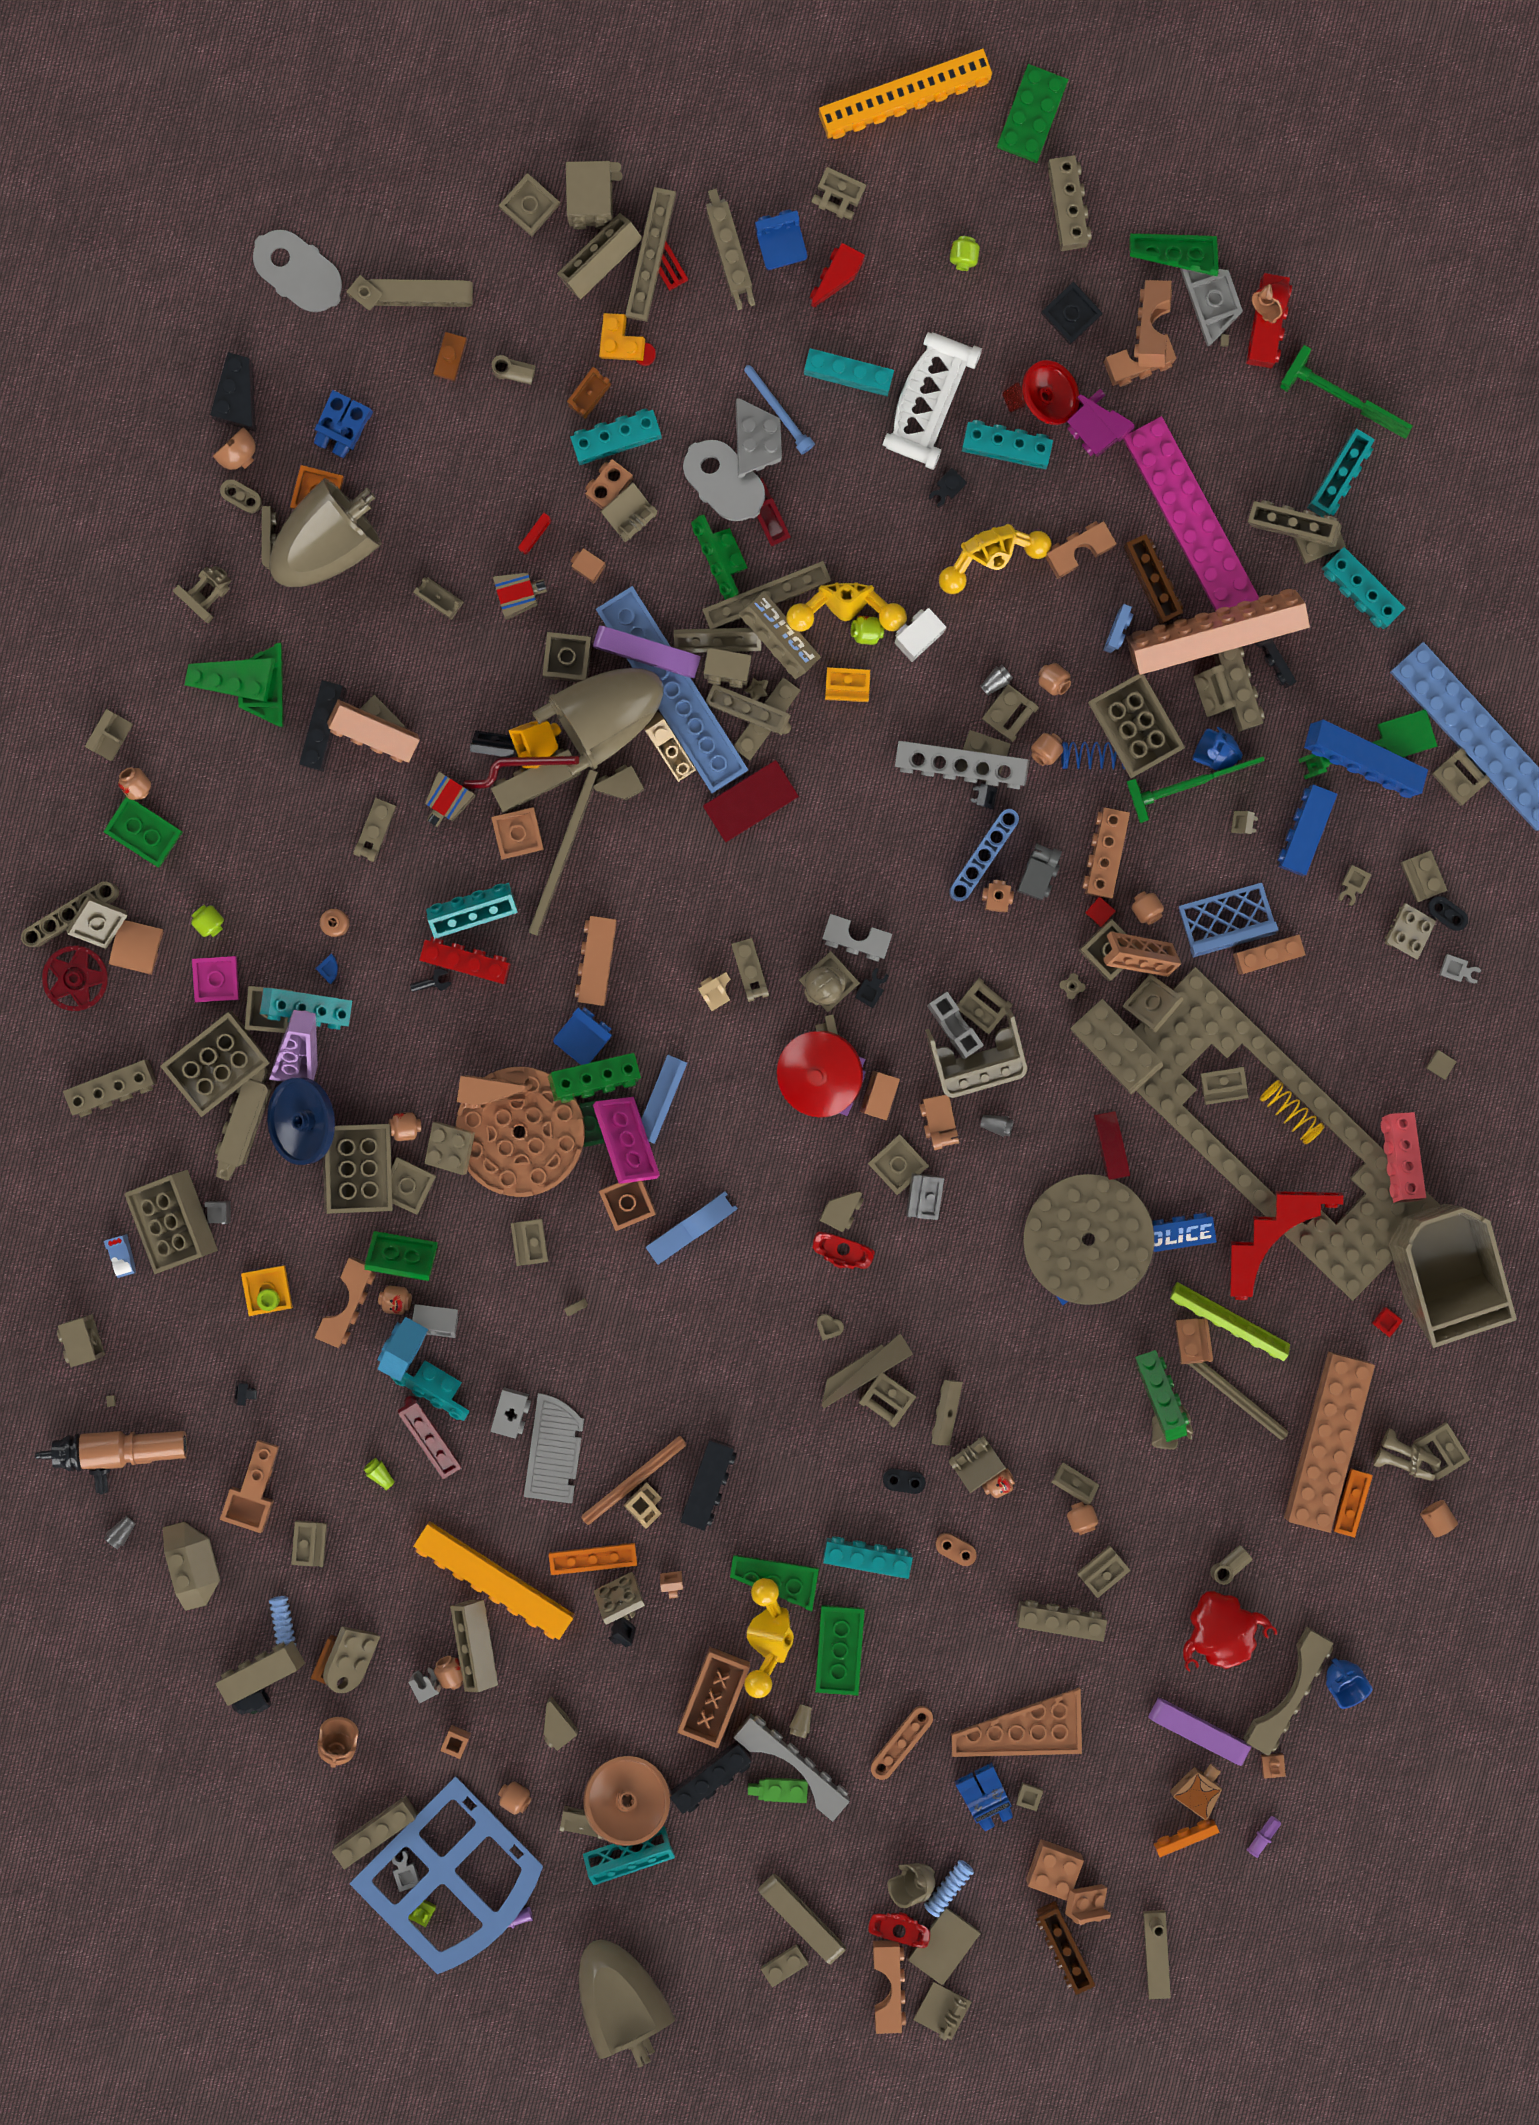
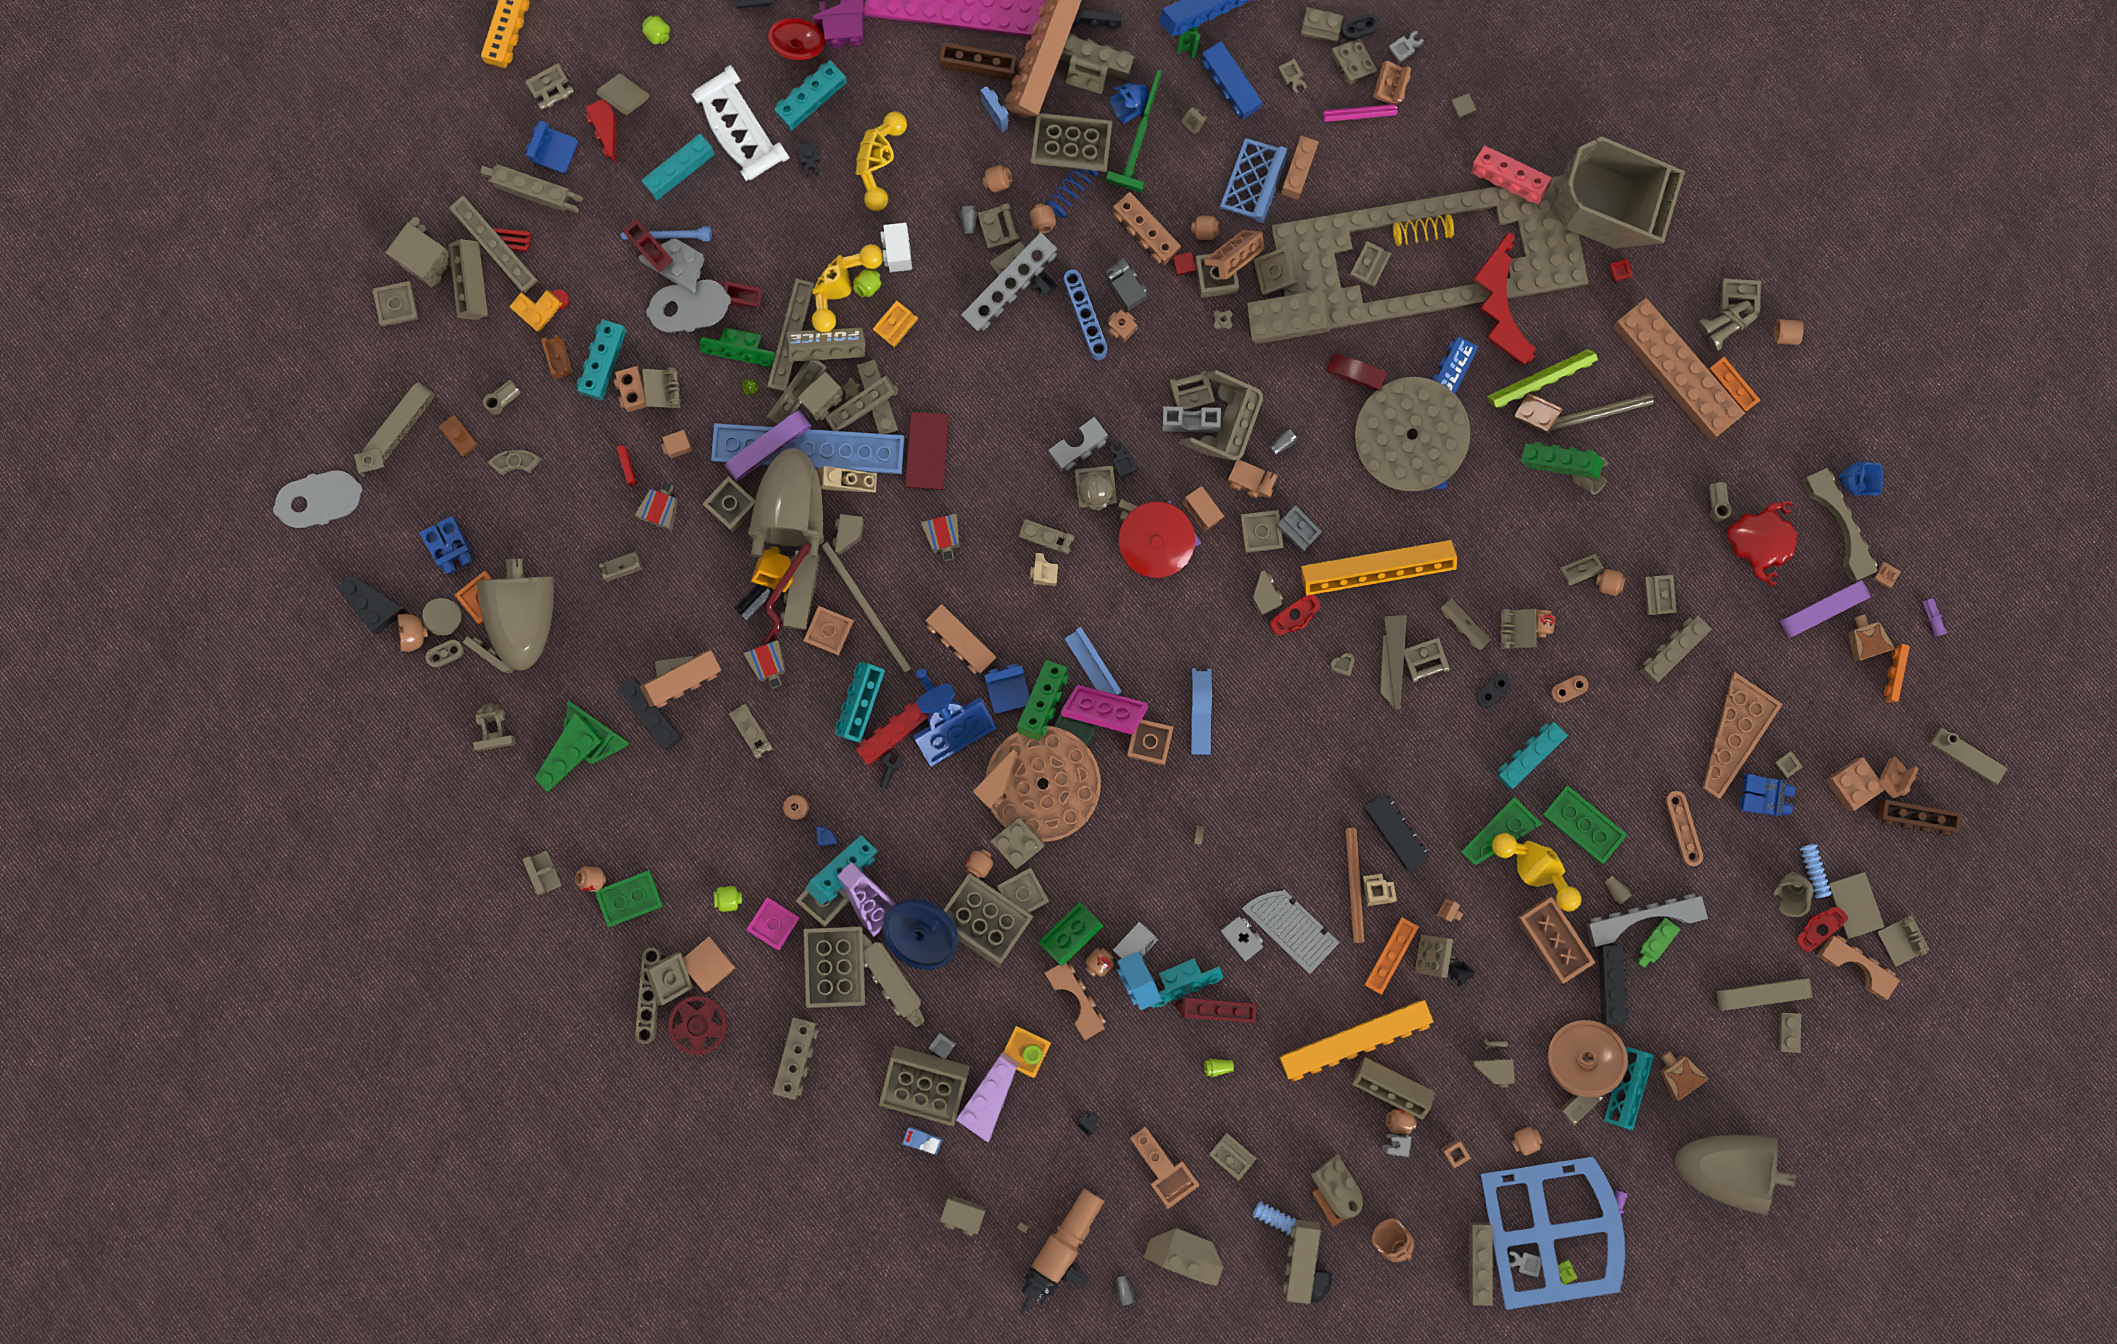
camera: 55 degrees left, 5 degrees down
(198, 1288) = (987, 1101): none -> lavender wedge
(272, 468) = (441, 616): none -> dark tan tile
(465, 425) = (514, 459): none -> dark tan tile
(511, 1007) = (955, 724): none -> blue plate
(529, 1242) = (1127, 835): dark tan plate -> none
(576, 1701) = (1487, 1044): none -> dark tan piece
(673, 1894) = (1680, 1075): none -> torso
(681, 873) = (942, 535): none -> torso
(690, 592) = (749, 386): none -> clear neon green hinge
(752, 400) = (647, 245): none -> dark red slope
(880, 268) = (623, 94): none -> dark tan tile
(941, 1296) = (1379, 567): none -> light orange brick
(1014, 397) = (781, 67): clear red slope -> none
(1096, 538) = (920, 80): nougat arch -> none
(1364, 972) = (1360, 112): none -> dark pink axle
(1413, 983) = (1392, 83): none -> nougat bracket

